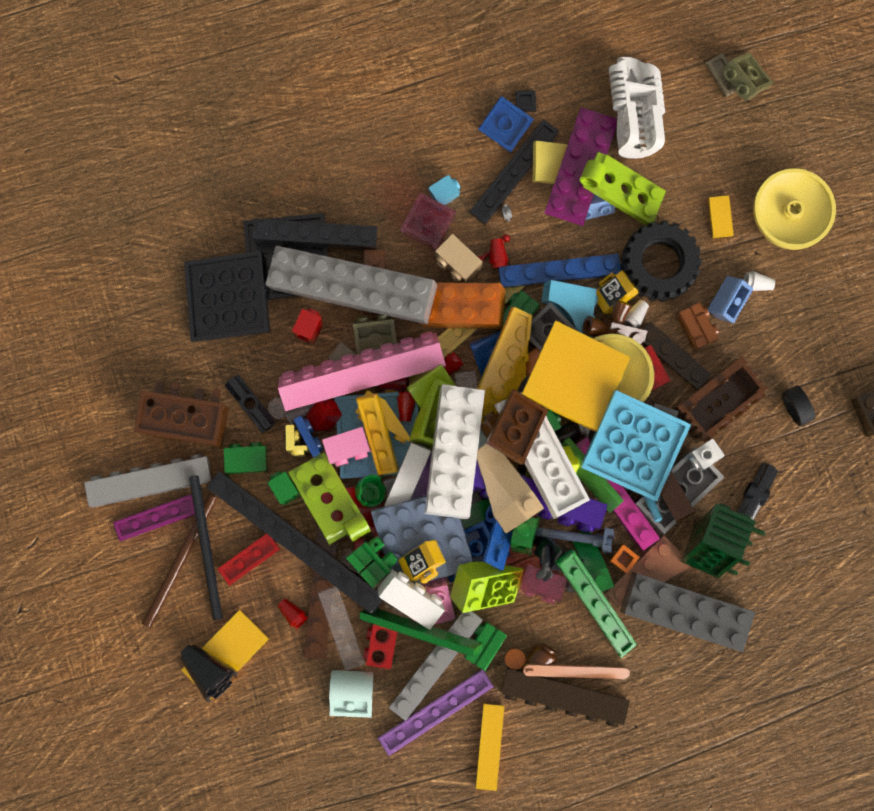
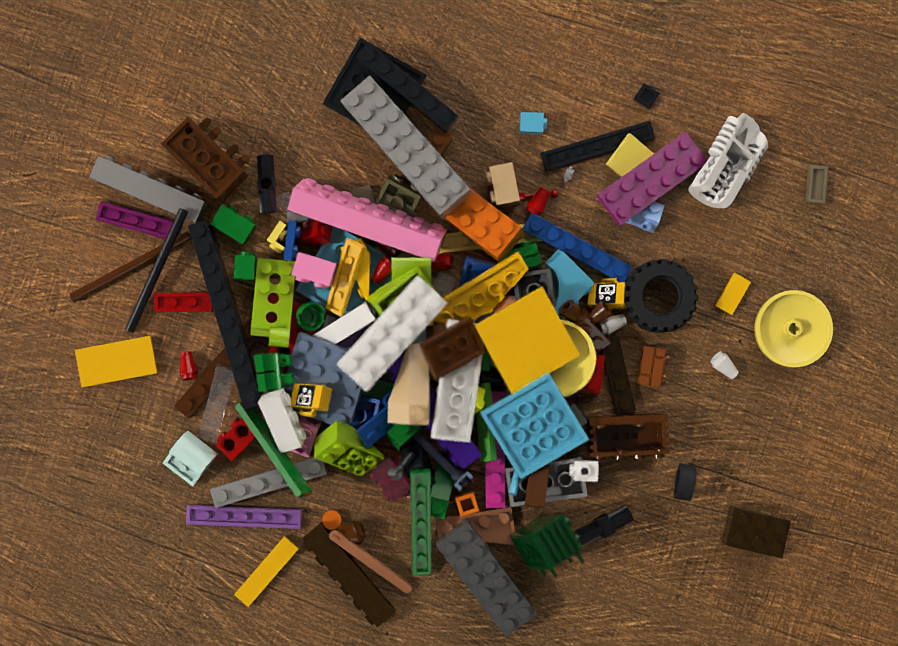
camera: 30 degrees right, 5 degrees up
(207, 671) = (92, 366): black cone -> none
(227, 297) = (306, 88): black plate -> none
(308, 326) = (352, 155): red brick -> none
(428, 222) = (502, 139): clear pink brick -> none
(492, 641) = (323, 492): green brick -> none
(506, 124) = (617, 103): blue plate -> none
(594, 181) = (652, 198): lime hinge -> none
(730, 299) = (692, 363): medium blue brick -> none
(746, 76) = (833, 198): olive plate -> none

